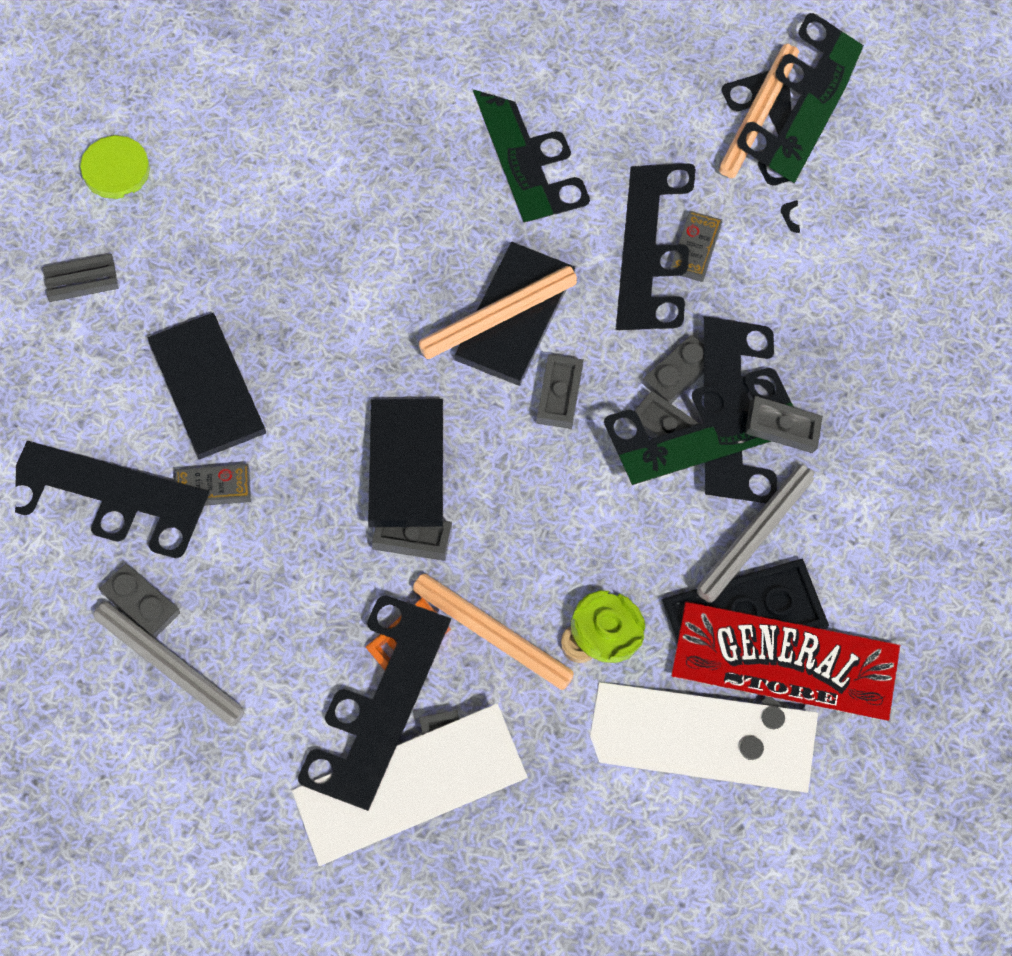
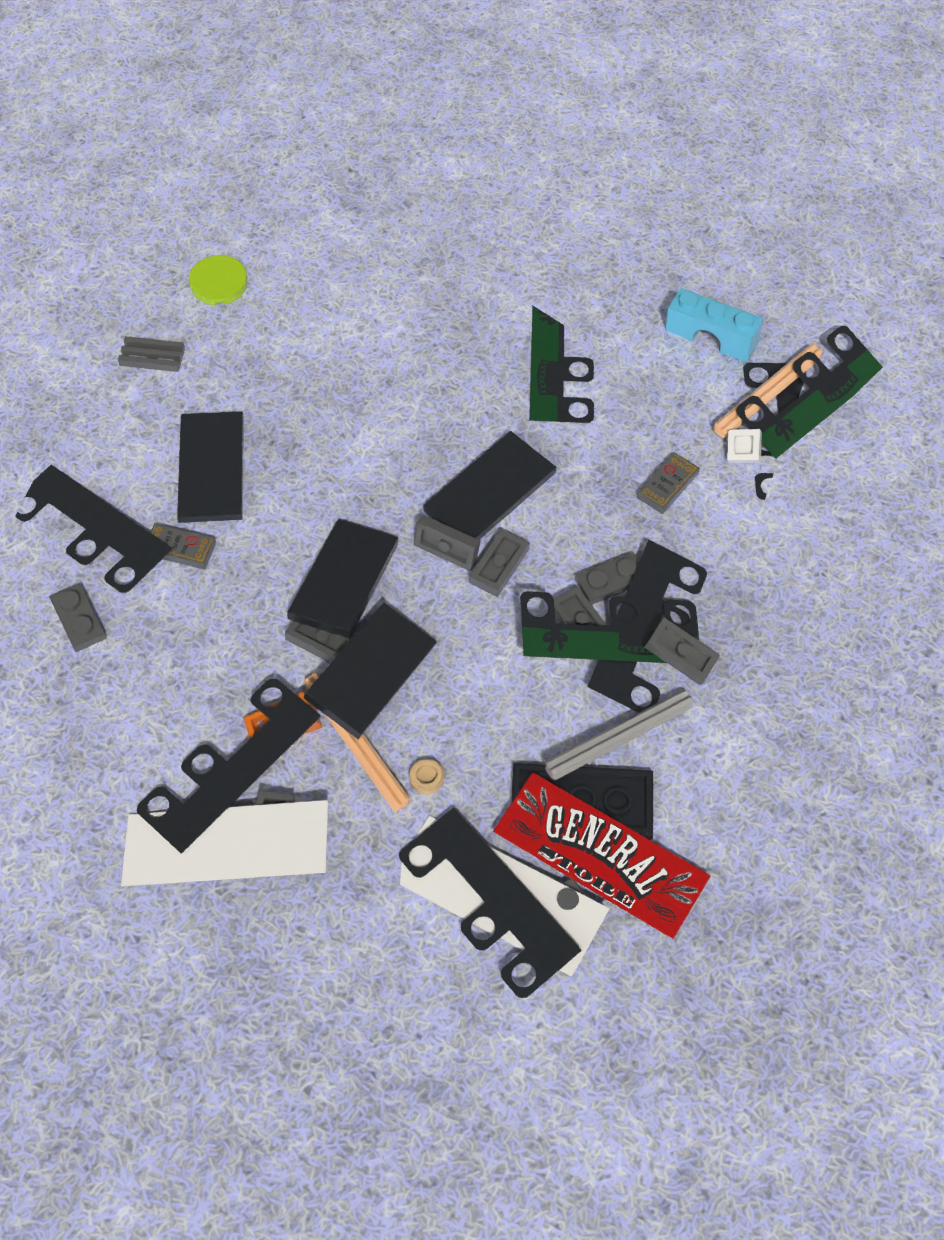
camera: 20 degrees right, 5 degrees down
(169, 664) = (77, 676): light grey axle -> none
(479, 553) = (370, 670): none -> black tile
(497, 312) = (473, 481): light nougat axle -> none
(497, 388) = (446, 542): none -> dark grey plate
(608, 626) = (455, 770): lime tile -> none
(642, 255) = (619, 474): black piece -> none
(697, 50) = (735, 328): none -> medium azure arch
(712, 738) = (504, 896): none -> black piece
(759, 180) = (744, 446): none -> white plate

